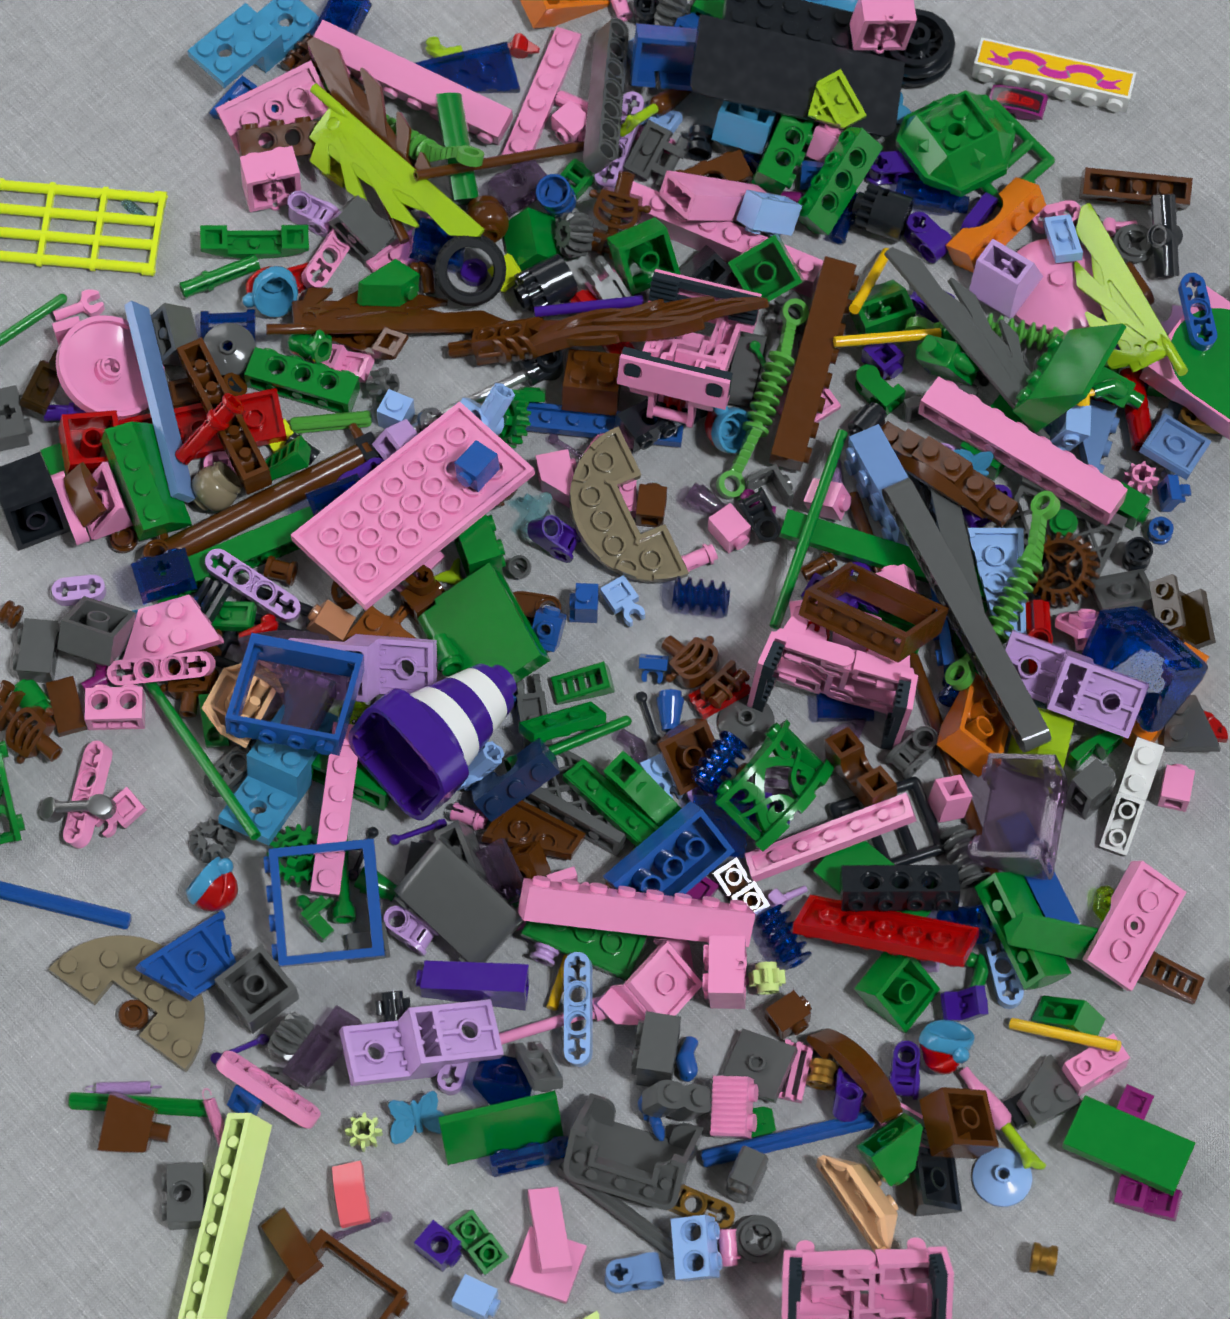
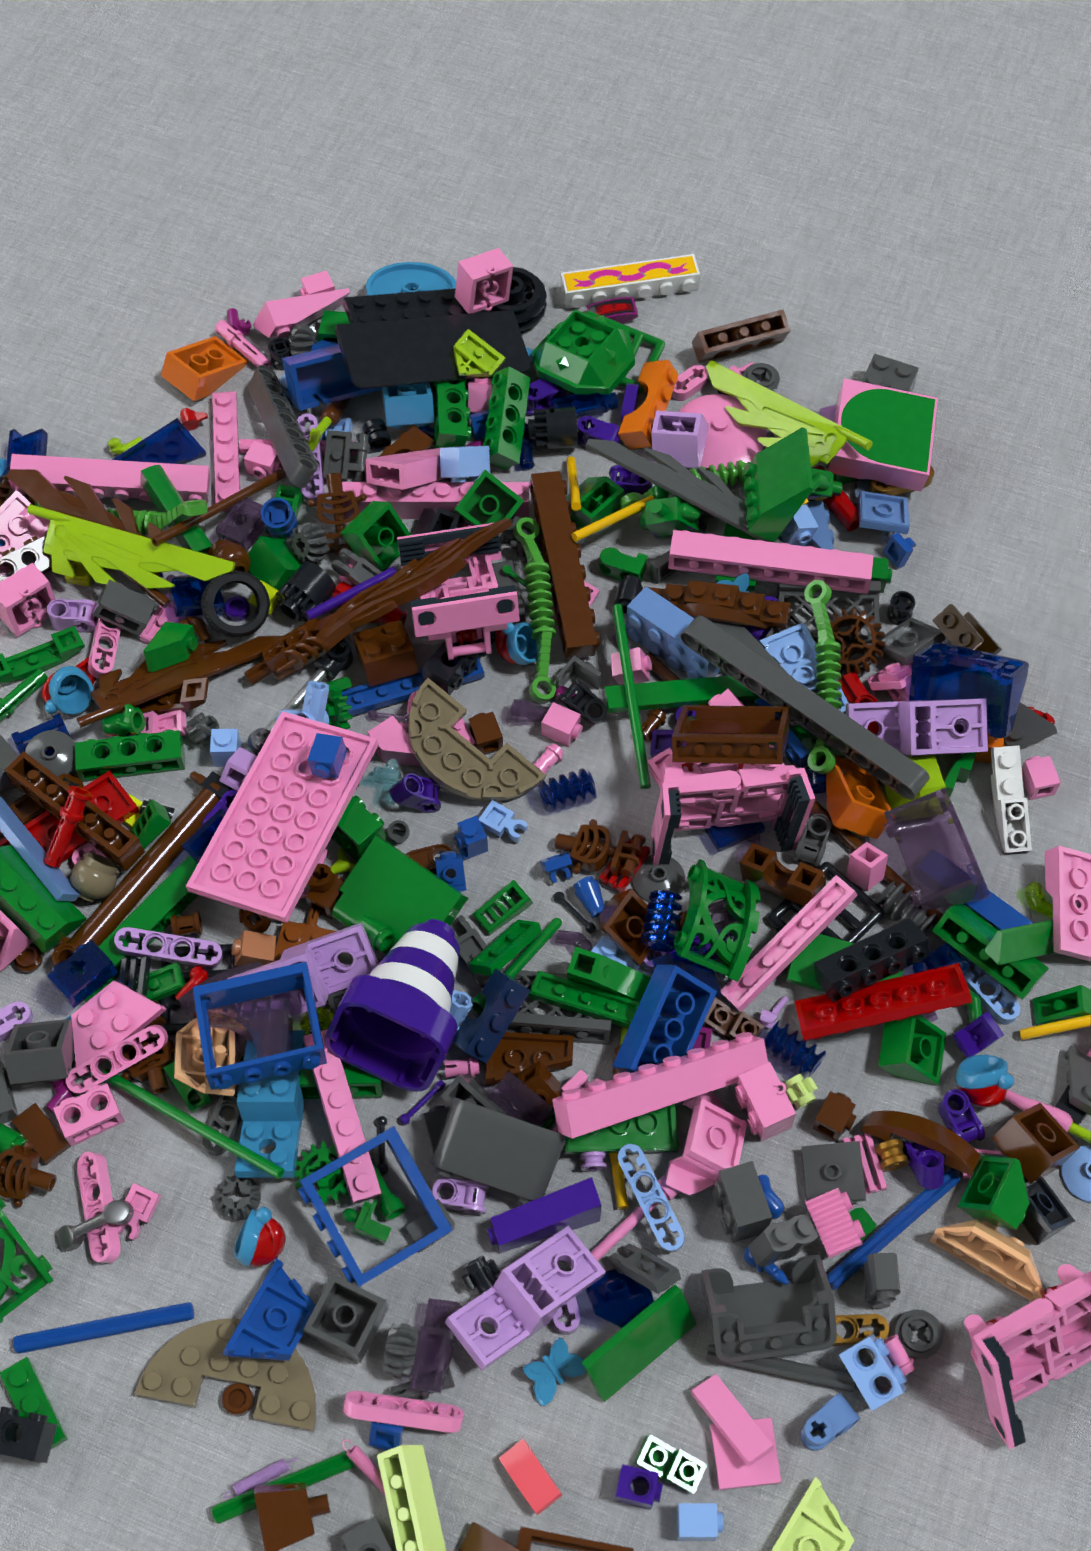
camera: 25 degrees left, 5 degrees down
(262, 1039) = (338, 1402): dark purple hinge -> none
(330, 421) = (170, 779): bright green axle -> none
(362, 1140) = (508, 1401): yellowish green gear -> none
(385, 1217) = (572, 1482): clear purple hinge -> none
(386, 886) = (397, 1174): green cone -> none
(529, 1157) = (677, 1356): clear blue hinge -> none
(888, 352) = (615, 536): dark purple brick -> none
(1062, 238) = (707, 393): light blue plate -> none
(1064, 522) = (834, 605): green plate -> none
(1091, 788) = (978, 806): dark grey brick -> none
(1141, 471) = (870, 545): bright pink gear -> none
(1165, 235) = (777, 347): black piece -> none
(1166, 525) = (909, 577): blue bush -> none
(1193, 323) = (852, 409): blue beam -> none

